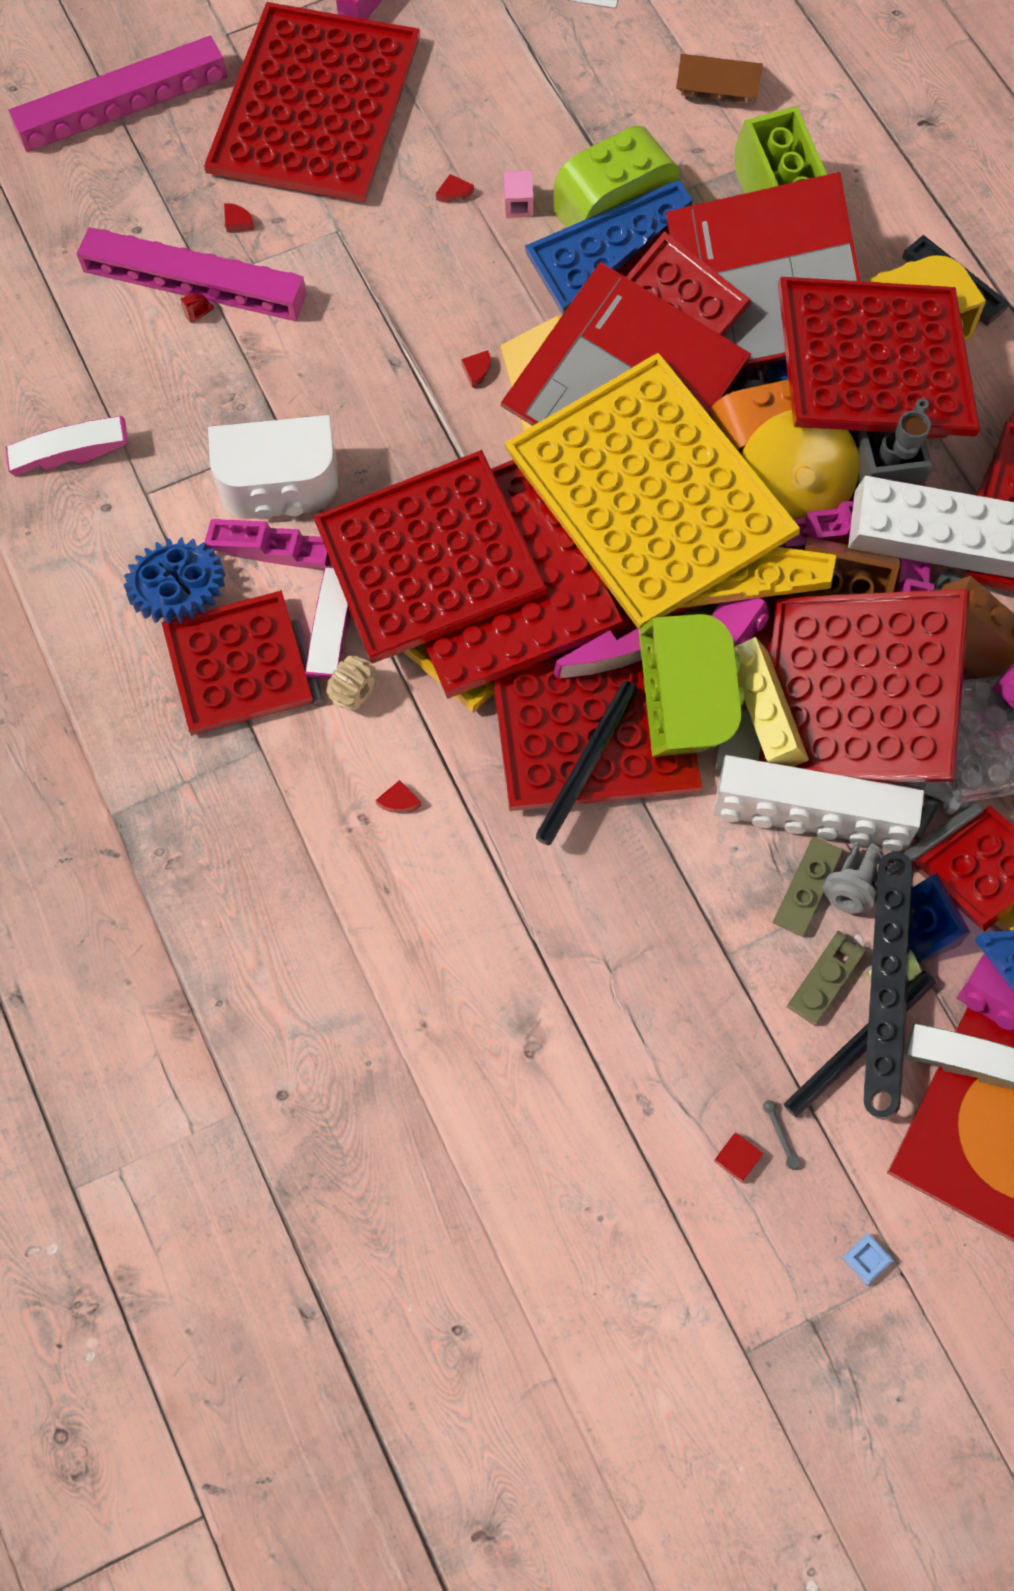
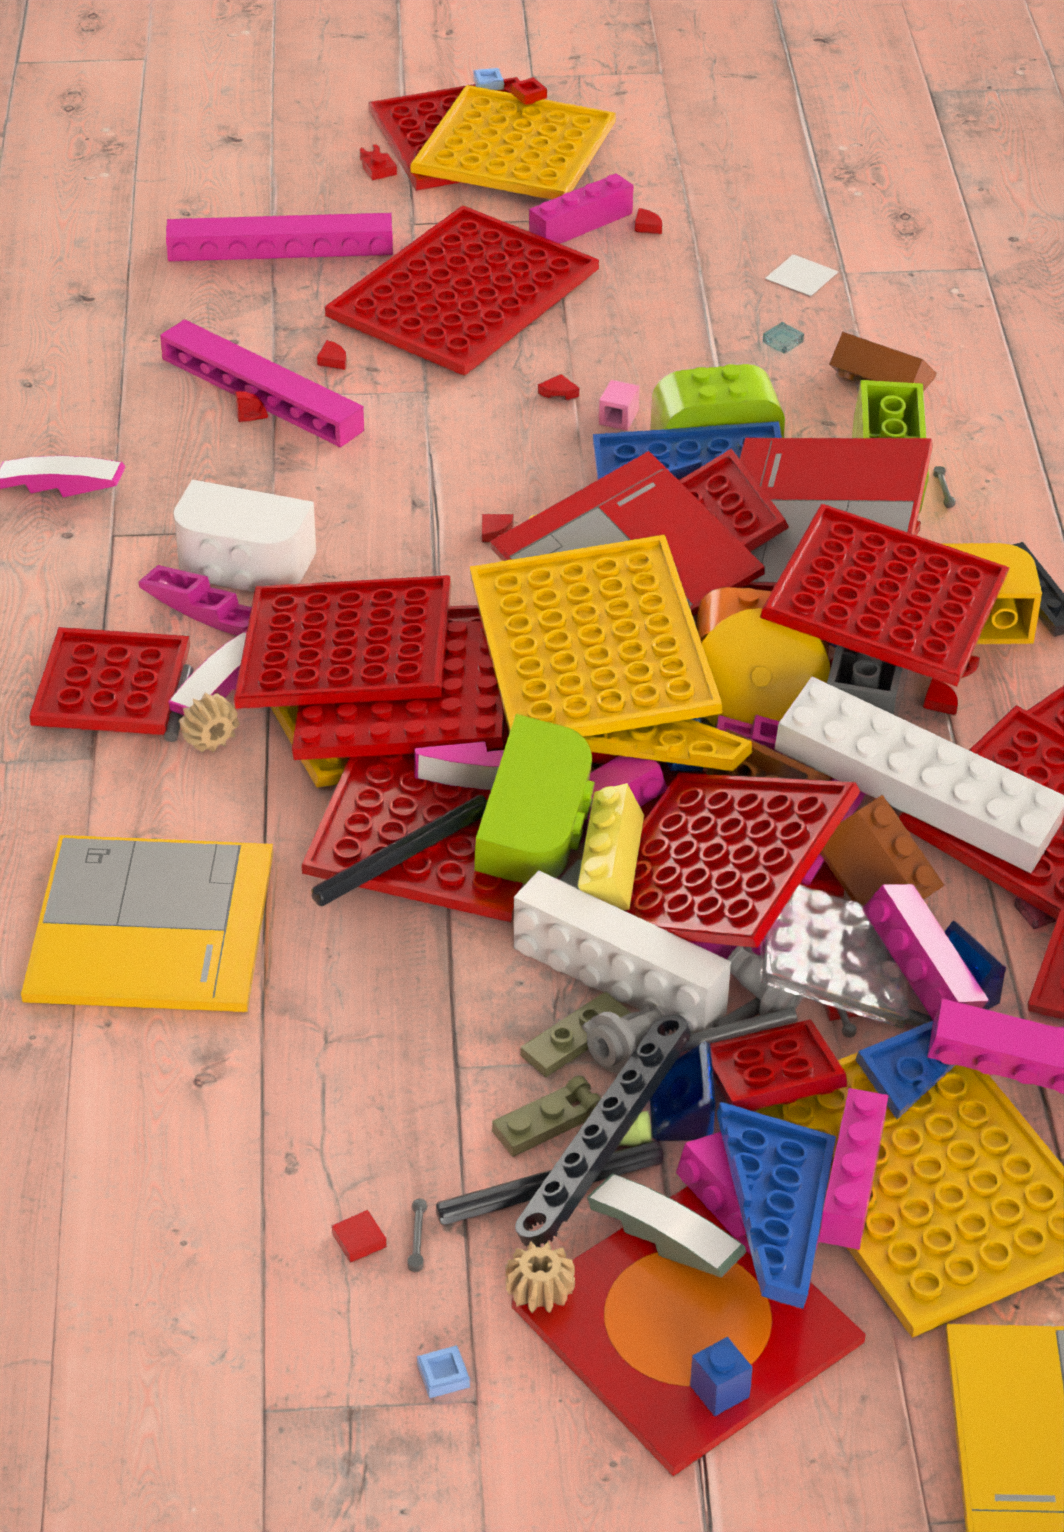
camera: 20 degrees right, 25 degrees down
(160, 595) = (70, 600): blue gear -> none
(398, 799) = (197, 830): red tile -> none
(406, 909) = (150, 924): none -> tile
(616, 65) = (783, 337): none -> clear light blue tile
(912, 430) = (879, 652): dark grey piece -> none
(920, 1141) = (539, 1276): none -> tan gear

